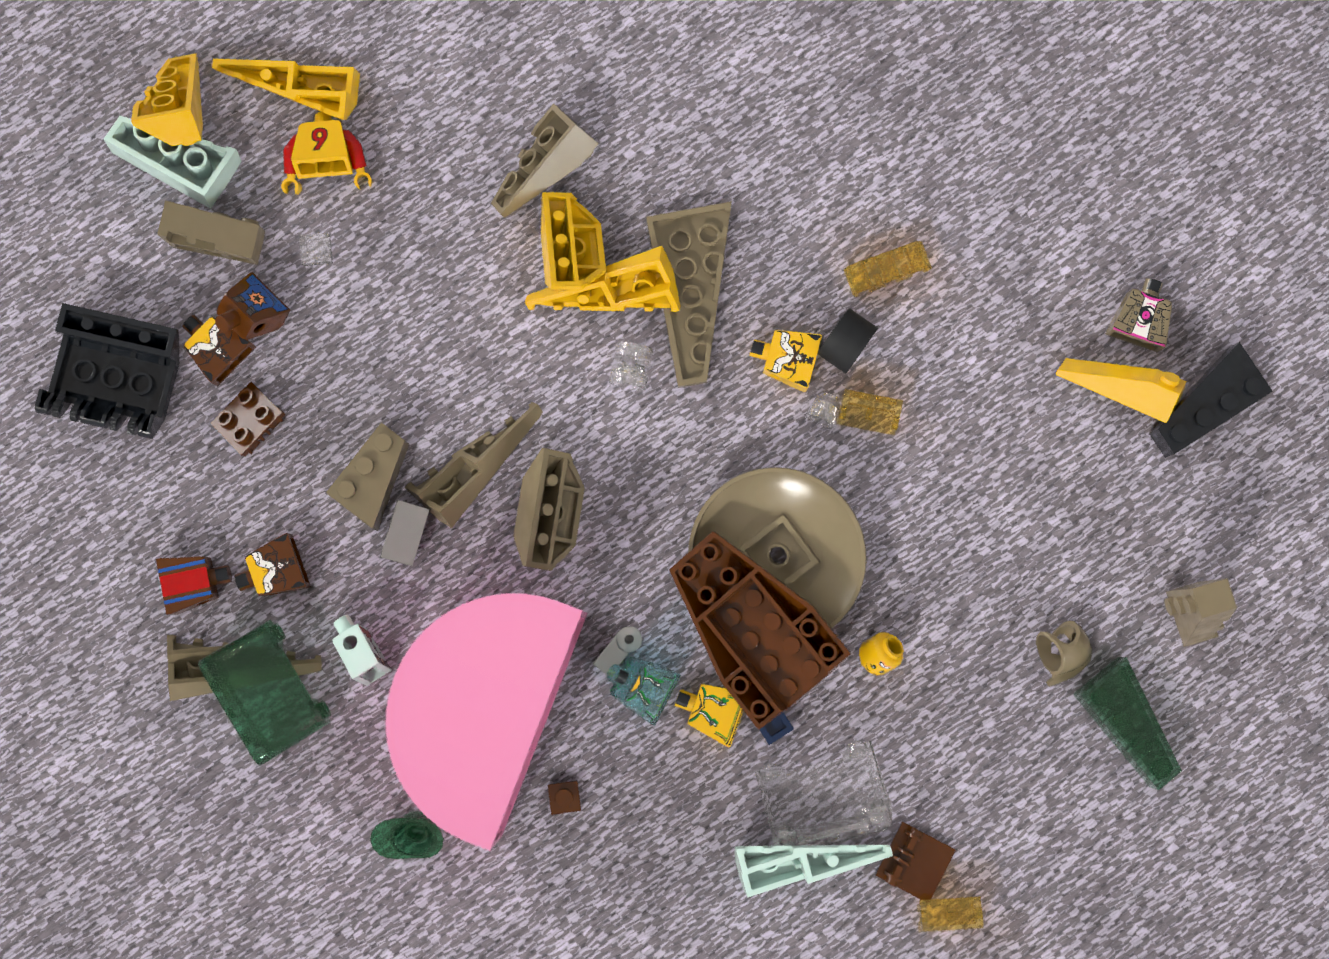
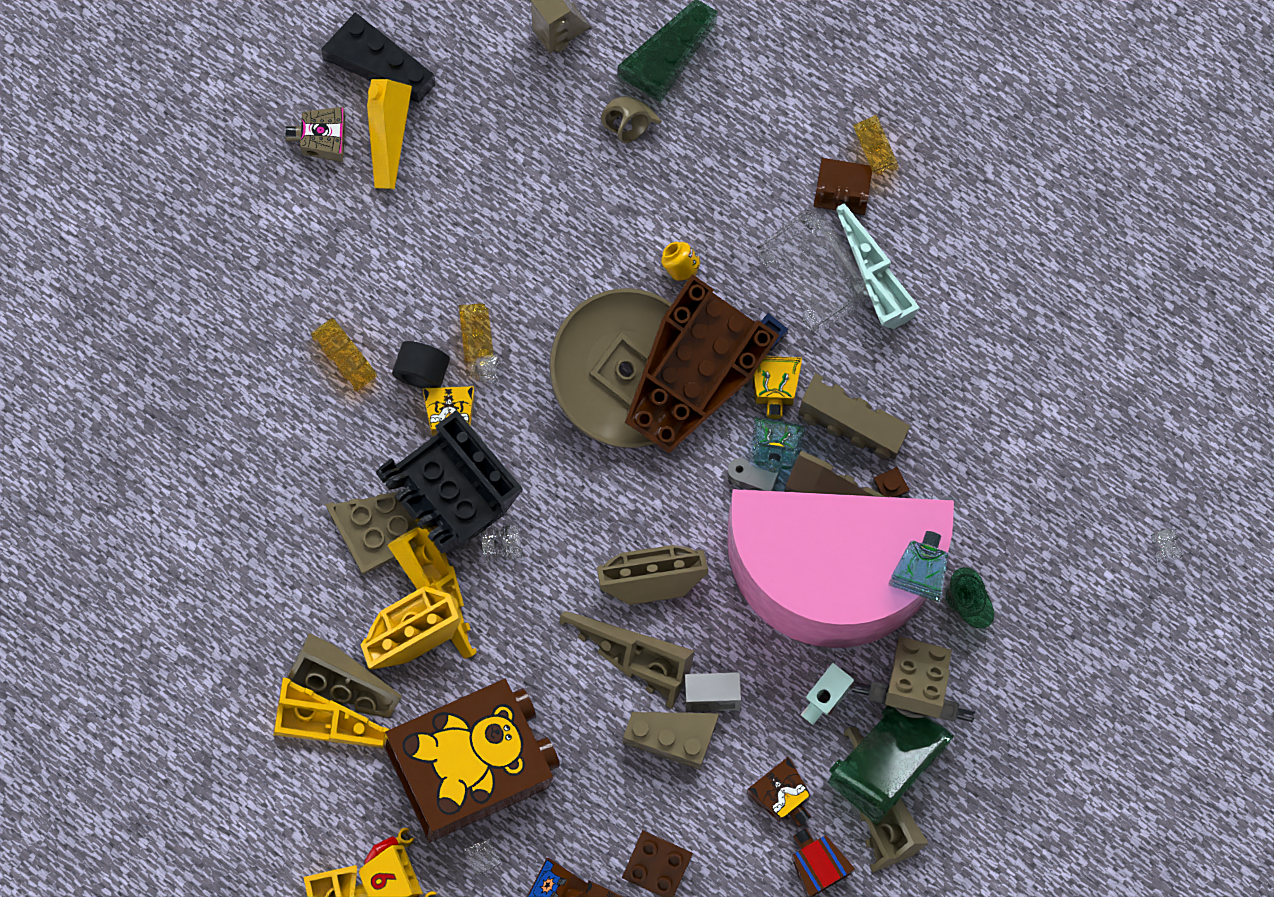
camera: 110 degrees left, 10 degrees down
(329, 746) = (917, 683): none -> dark tan piece
(410, 261) = (470, 758): none -> brick
(420, 787) = (922, 568): none -> clear light blue torso
(513, 124) = (315, 718): none -> yellow wedge
(582, 722) = (817, 477): none -> dark tan wedge
(644, 781) = (852, 419): none -> dark tan wedge
(703, 327) = (452, 484): none -> black slope

